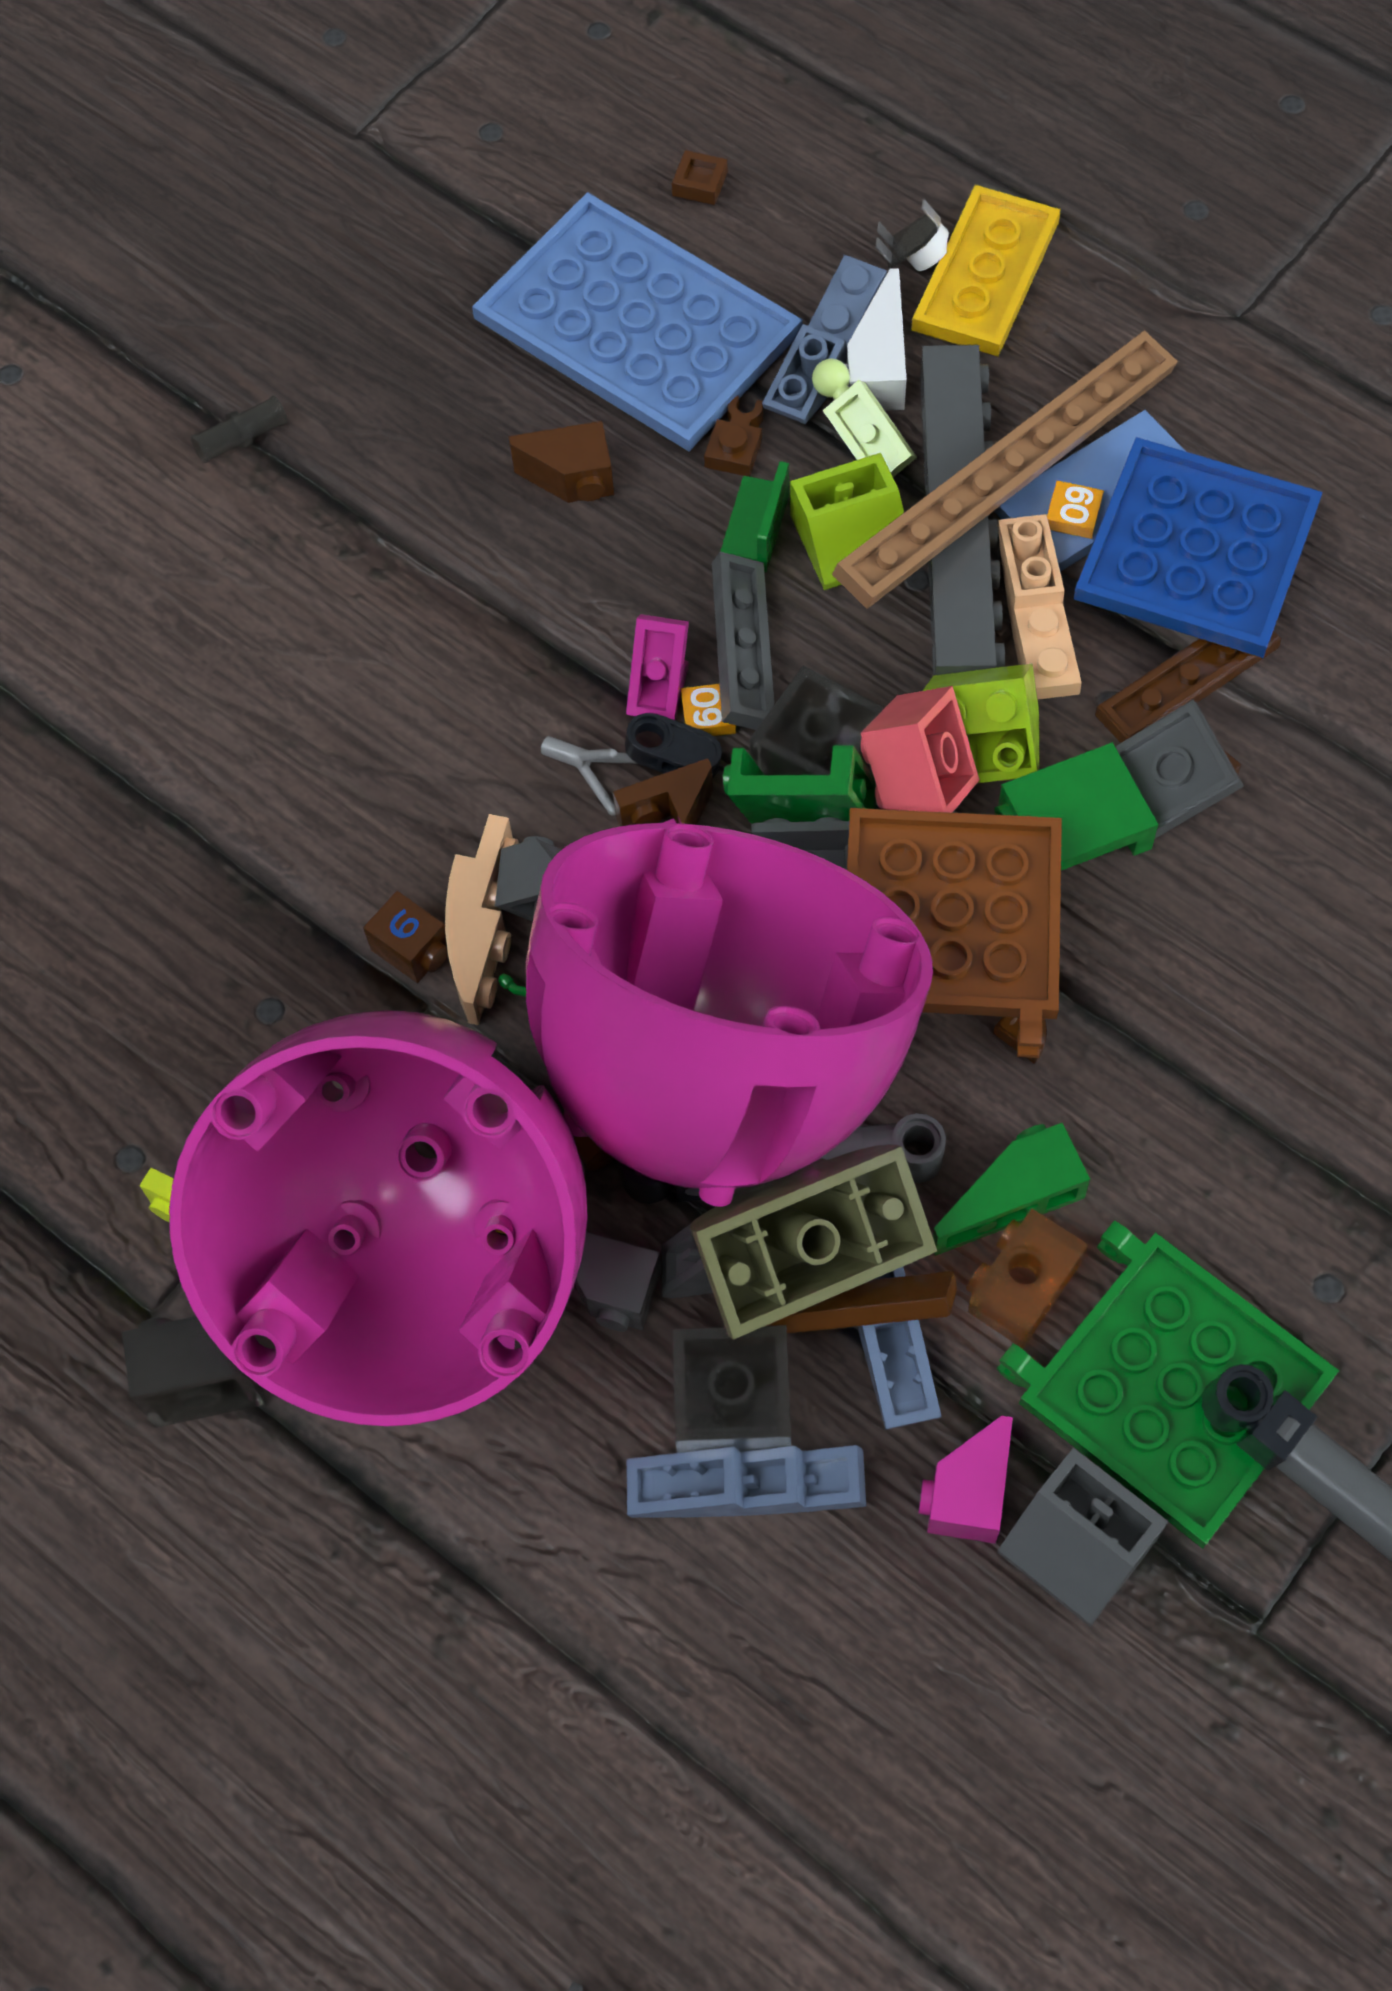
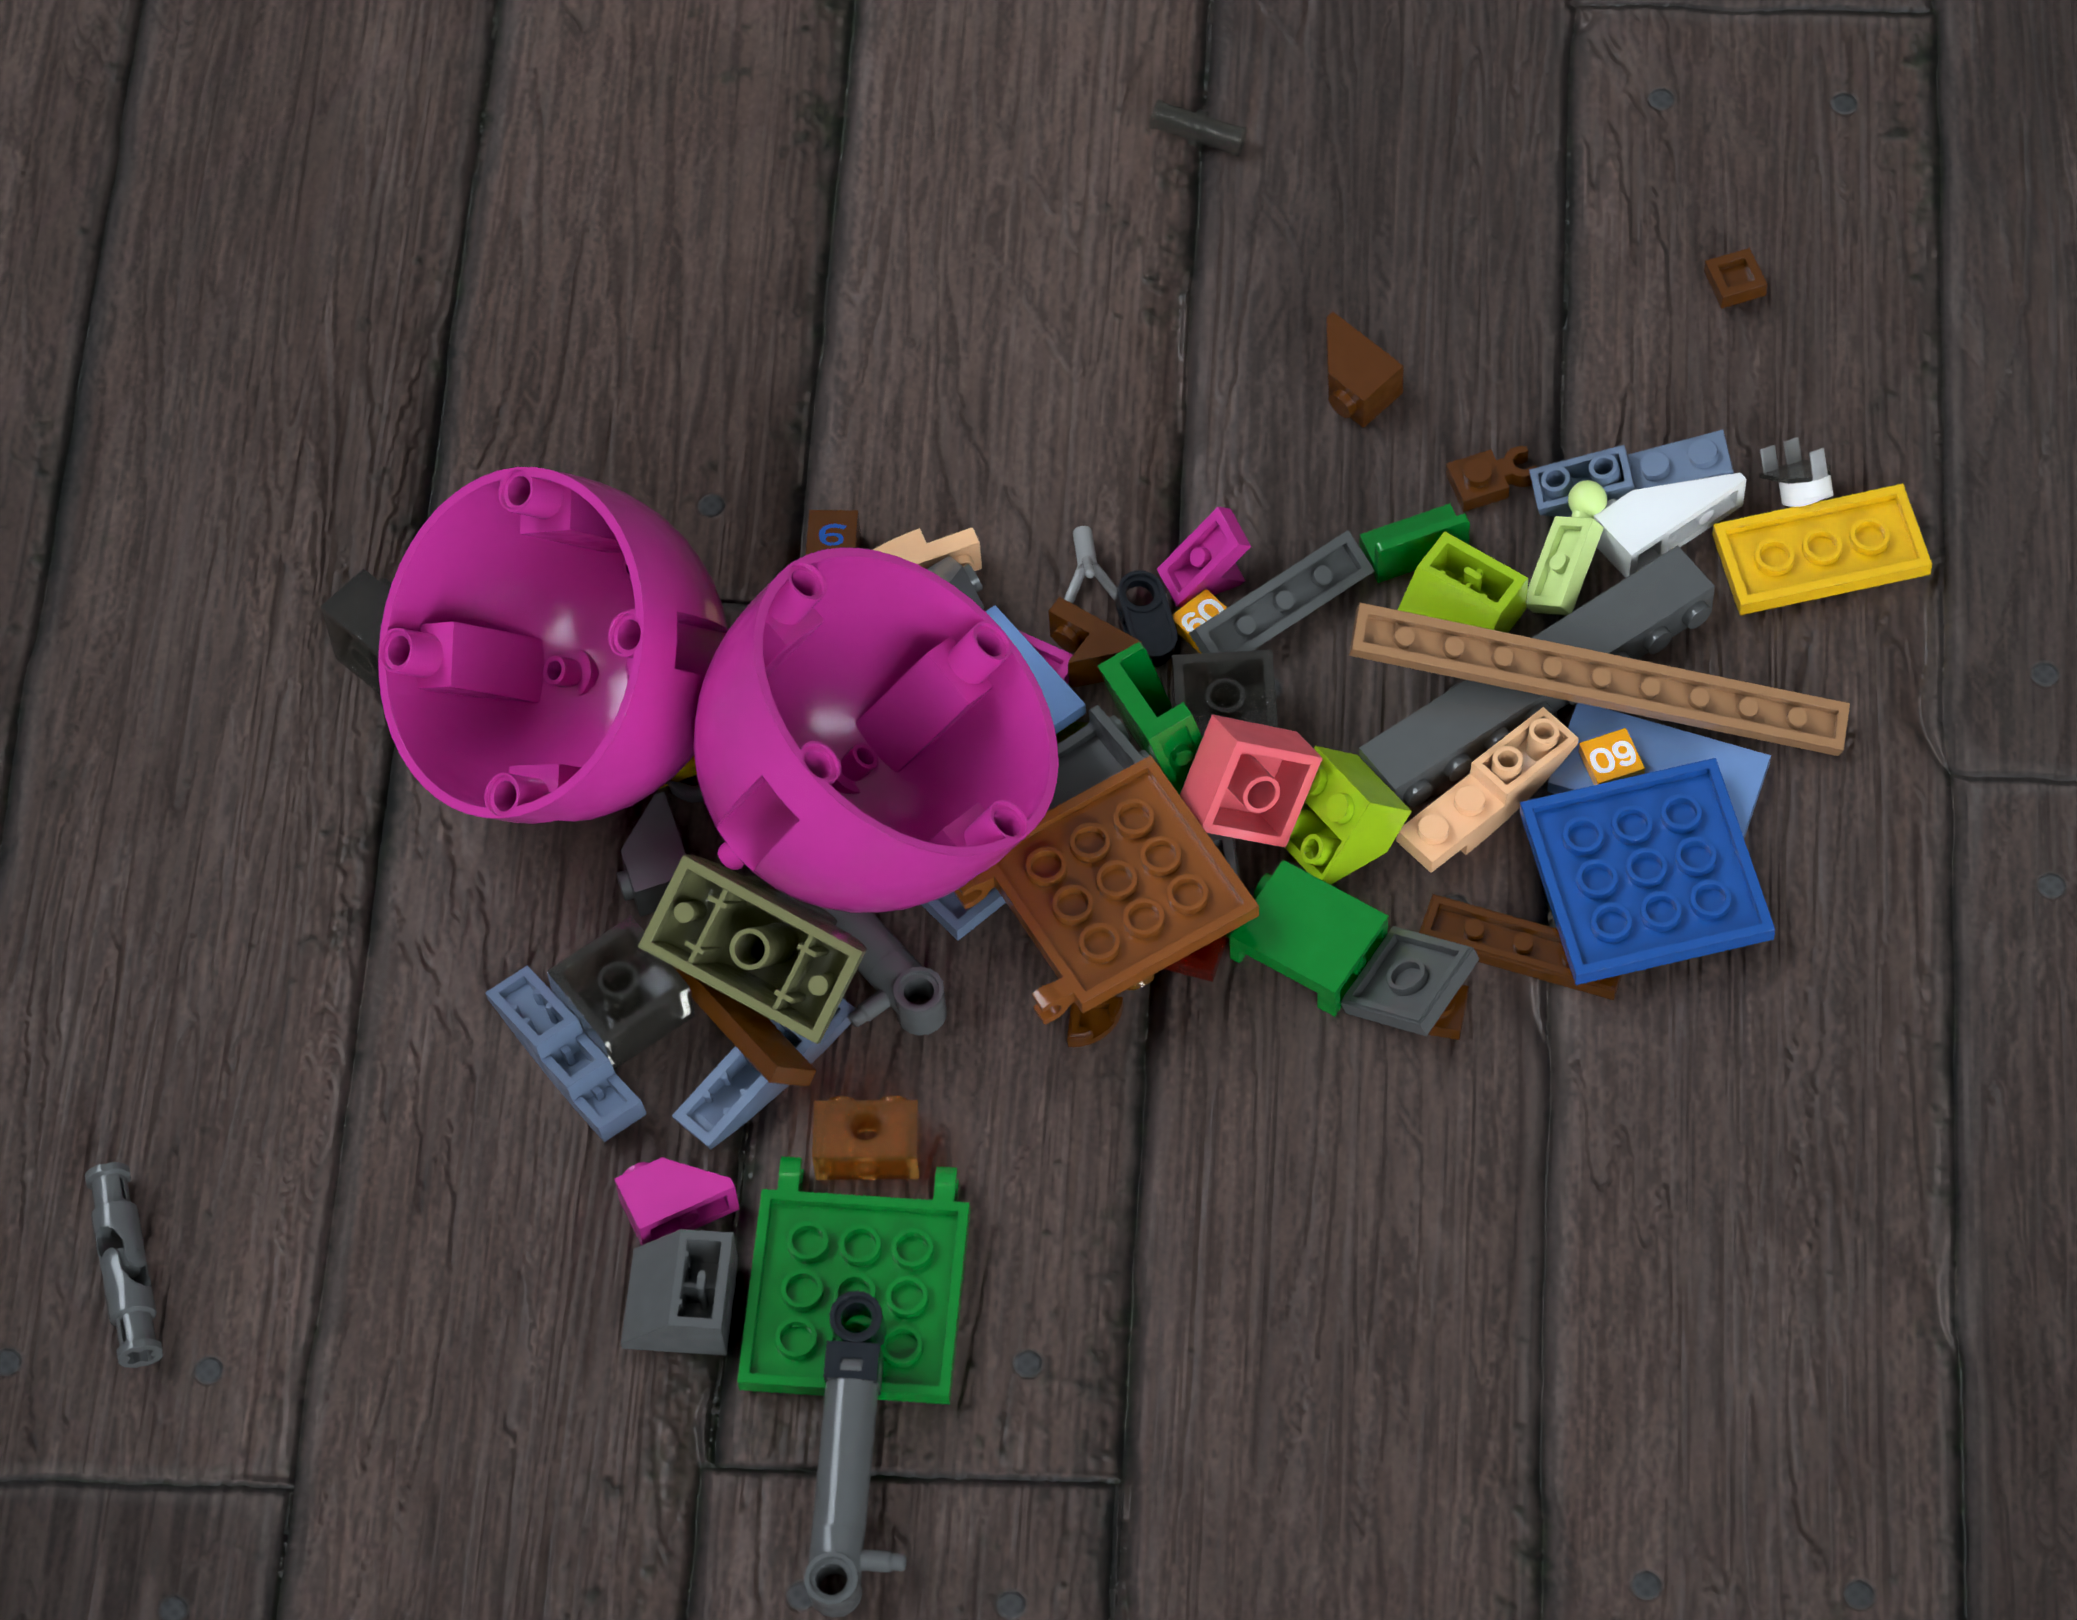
camera: 55 degrees right, 5 degrees down
(637, 320) = (1544, 328): medium blue plate -> none
(1031, 1173) = (950, 1087): green slope -> none

